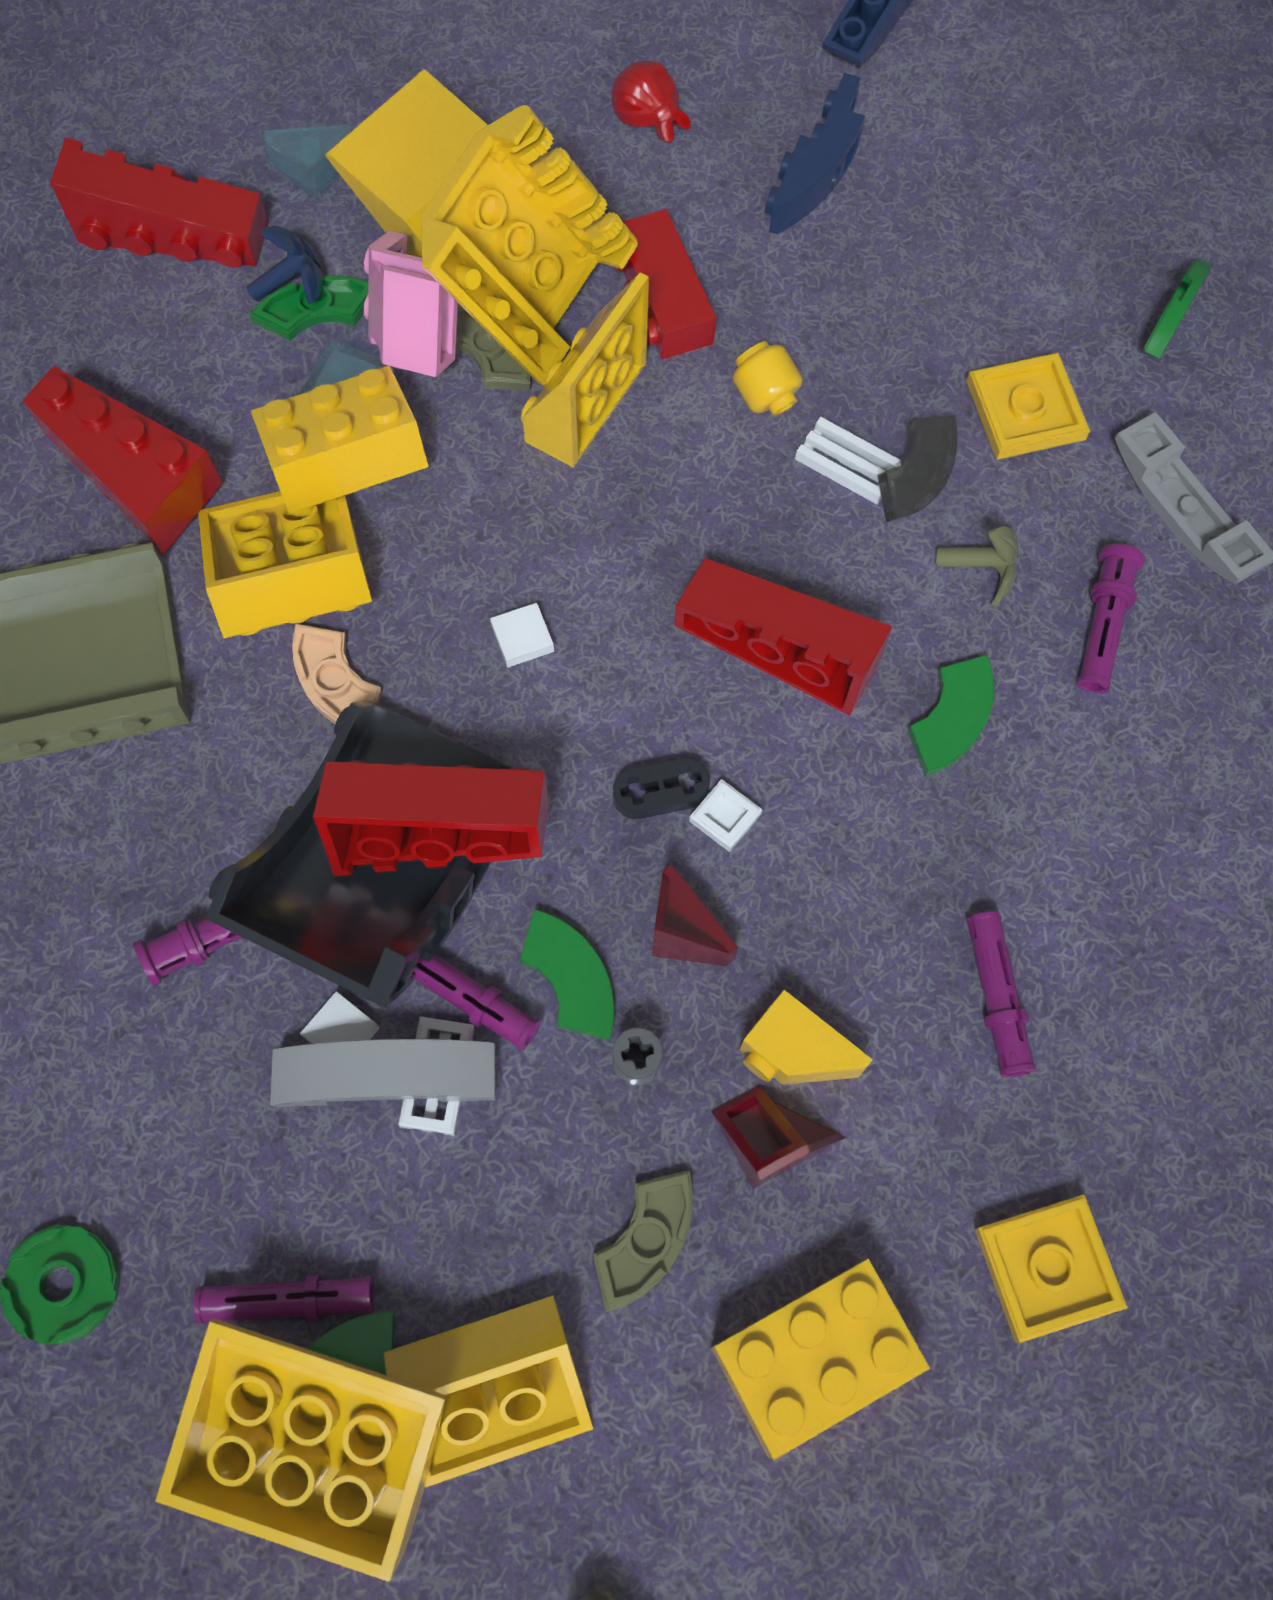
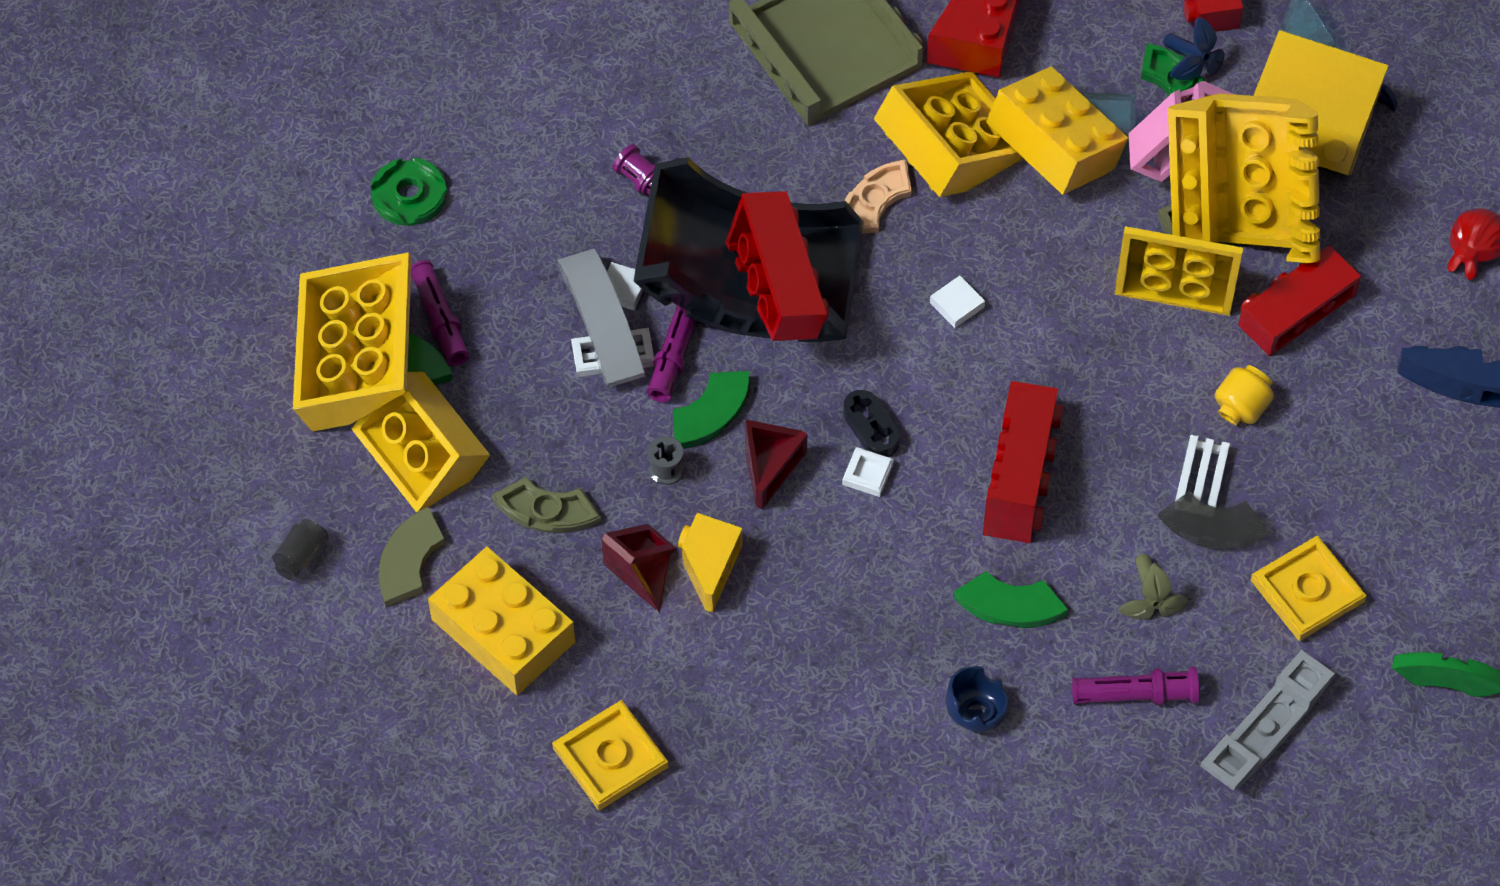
camera: 75 degrees right, 10 degrees down
(661, 1468) = (405, 555): none -> olive tile
(1004, 1011) = (754, 699): magenta pin -> none
(1105, 795) = (972, 687): none -> dark blue hair

